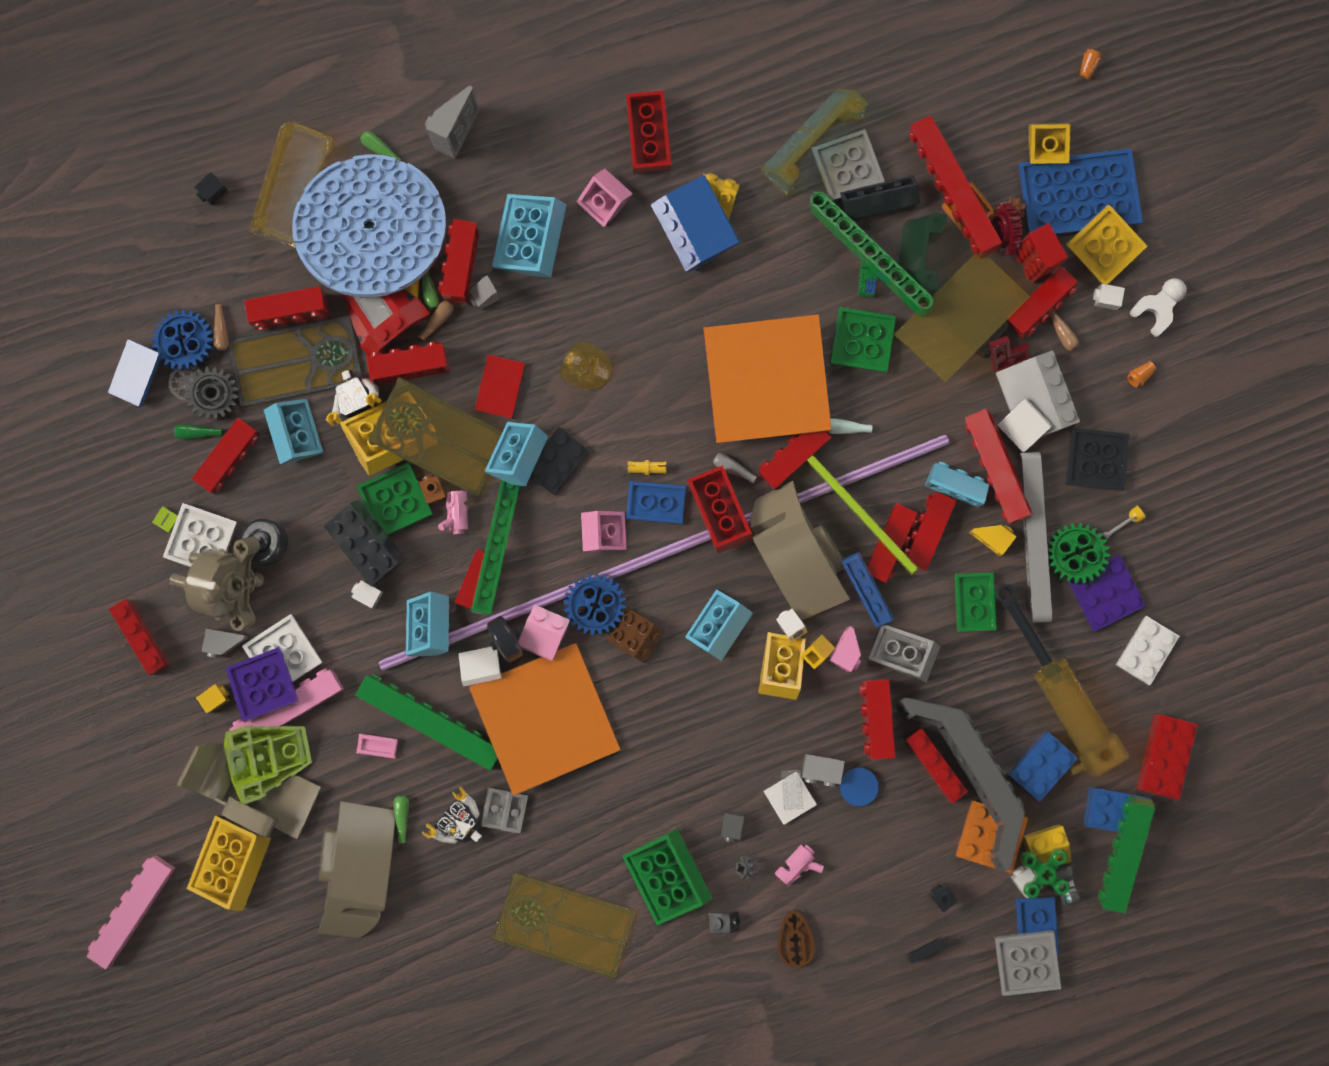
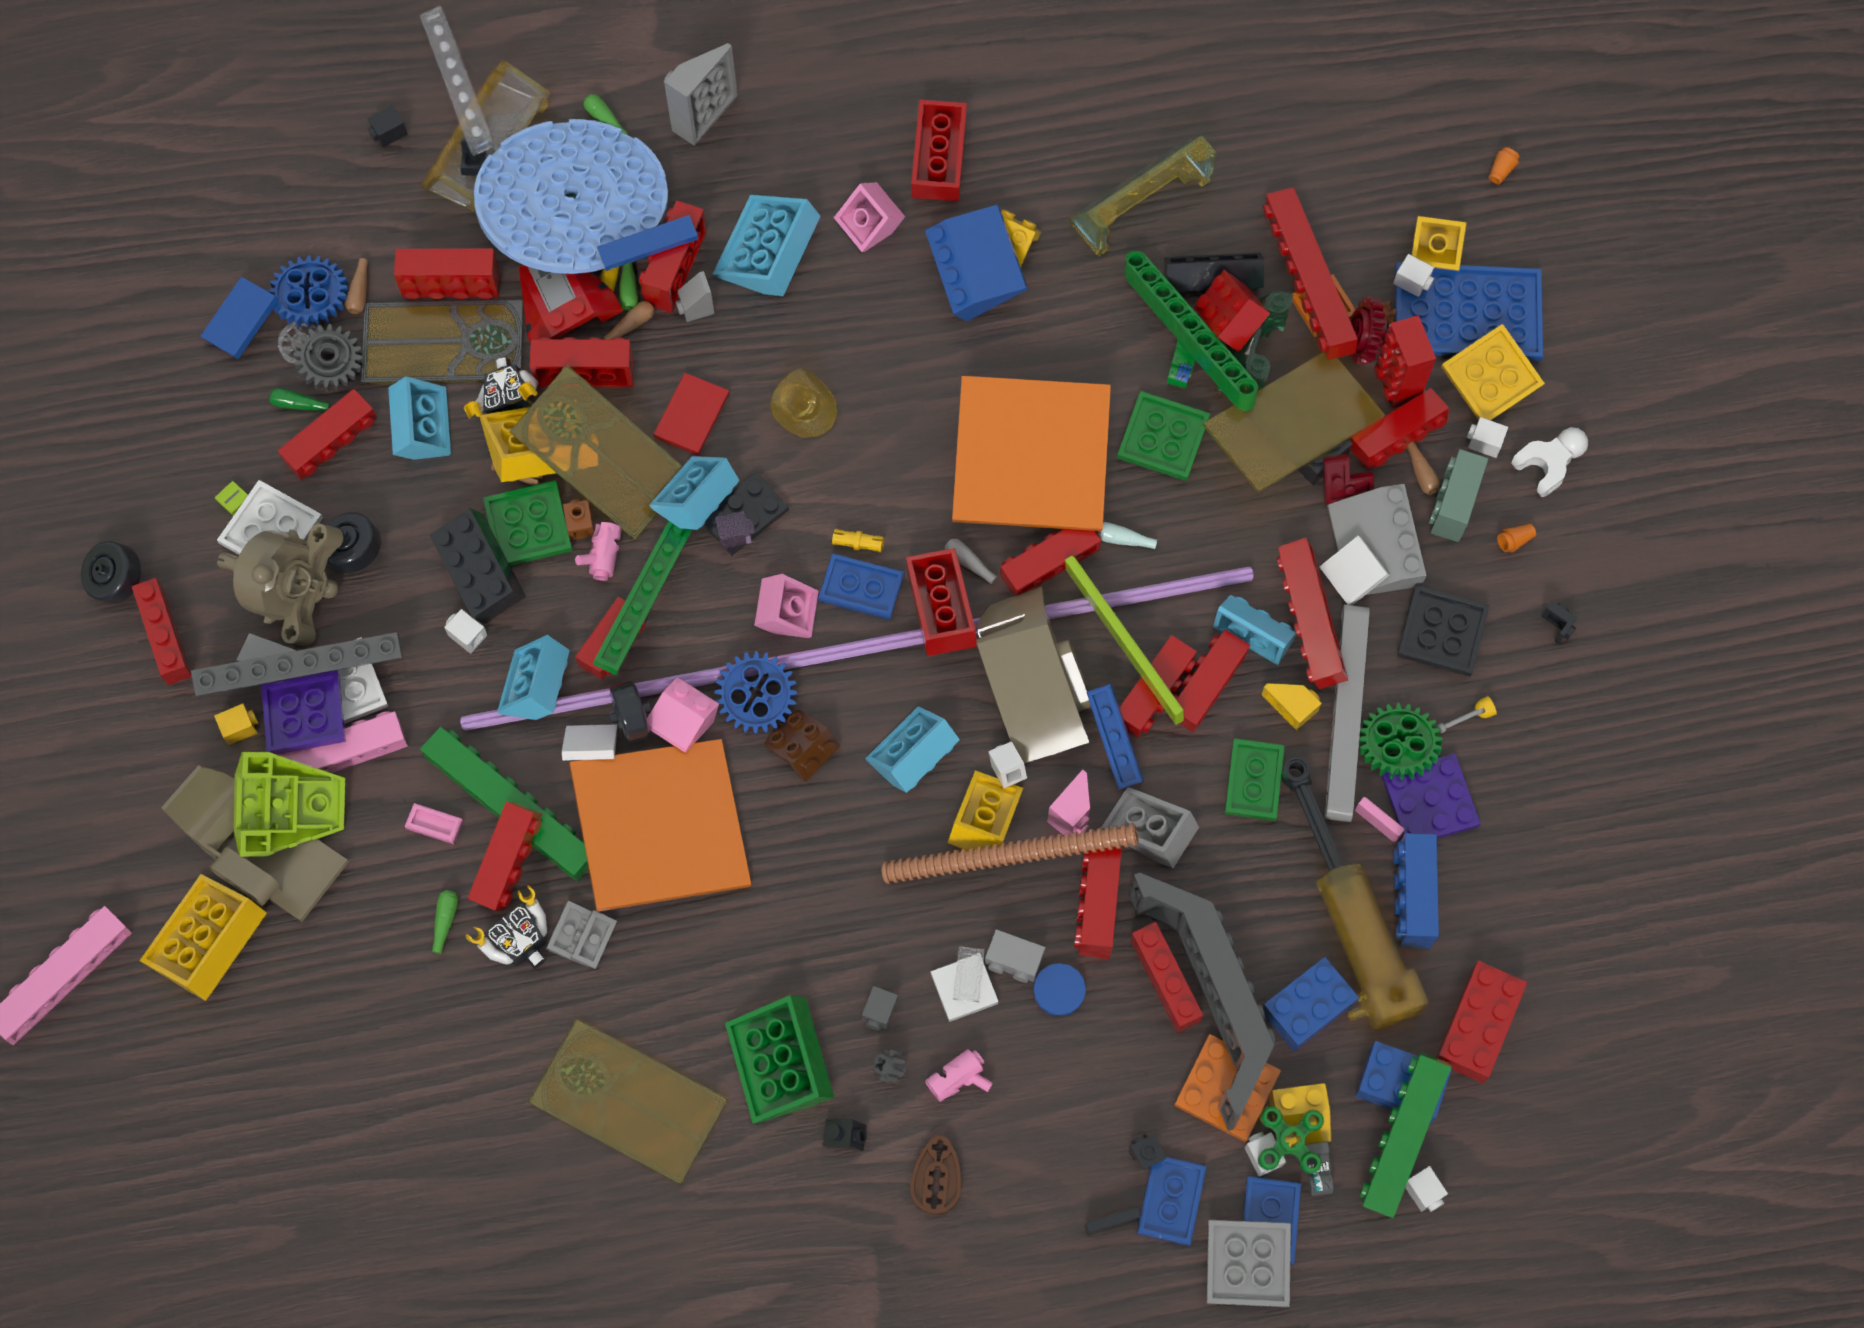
camera: 10 degrees right, 15 degrees down
(89, 598) = (110, 572): none -> black wheel
(248, 649) = (297, 664): none -> dark grey brick
(257, 141) = (457, 80): none -> clear tile
(284, 203) = (471, 164): none -> black bracket
(357, 869) = (366, 973): dark tan beam -> none
(436, 766) = (505, 856): none -> red brick
(439, 260) = (647, 242): none -> blue tile
(553, 479) = (734, 529): none -> clear purple brick
(807, 699) = (1009, 853): none -> nougat piece
(818, 651) = (1035, 802): yellow brick -> none
(847, 164) = (1179, 227): light grey plate -> none
(900, 233) = (1231, 310): none -> red brick
(966, 926) = (1172, 1200): none -> blue tile
(1035, 174) = (1414, 276): none -> white brick
(1072, 616) = (1379, 819): none -> bright pink tile
(1094, 351) = (1457, 495): none -> sand green brick
(1107, 669) = (1417, 891): none -> blue brick
(1145, 886) = (1426, 1190): none -> white brick
(1147, 650) = (1475, 882): white plate -> none
(1182, 431) = (1561, 618): none -> black bracket

